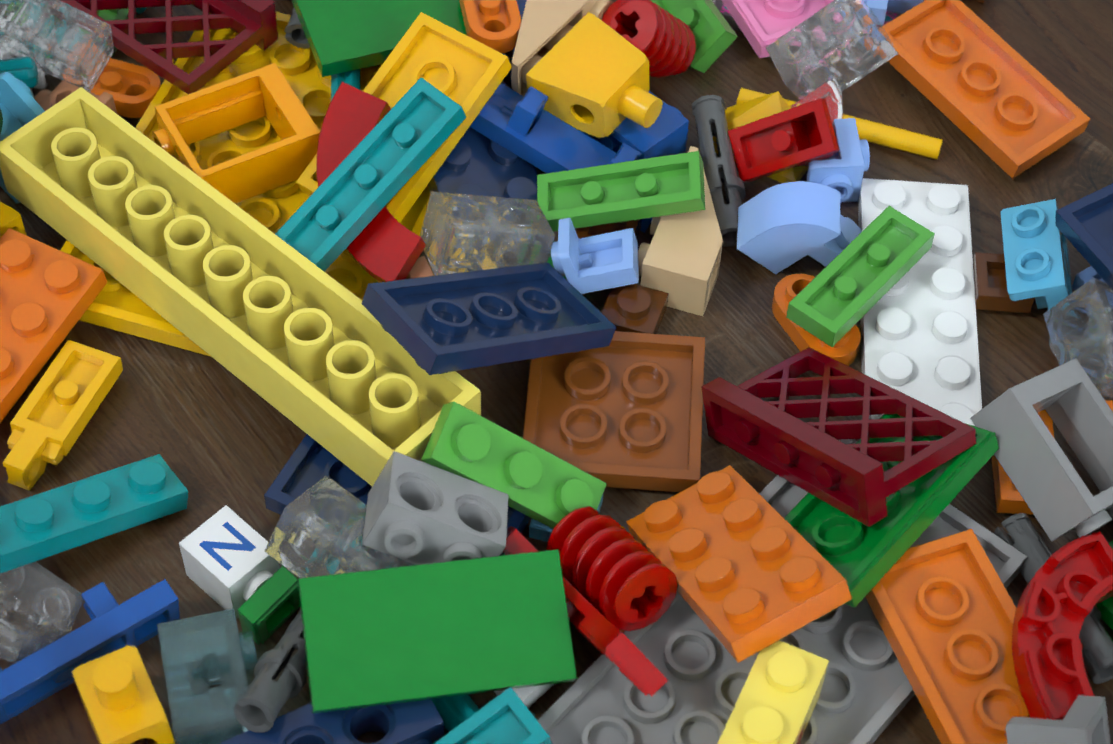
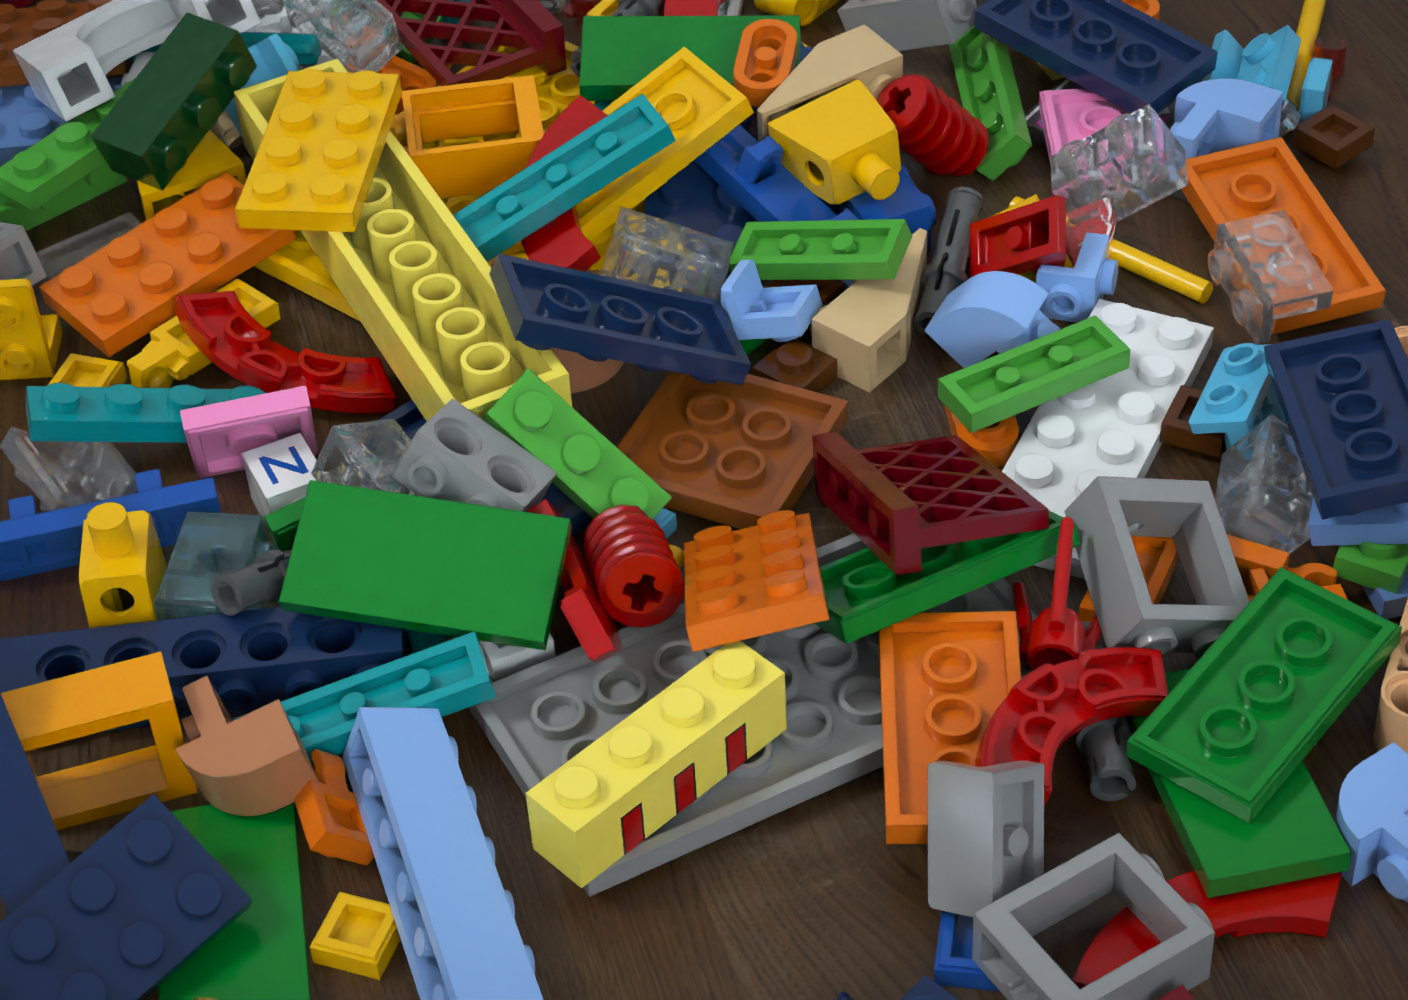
camera: 25 degrees right, 10 degrees down
(120, 200) = (319, 151): none -> yellow plate
(175, 517) = (228, 428): none -> bright pink tile
(179, 436) = (245, 351): none -> red tile
(993, 125) = (1266, 272): none -> clear bracket
(1014, 540) = (1057, 632): none -> red plant

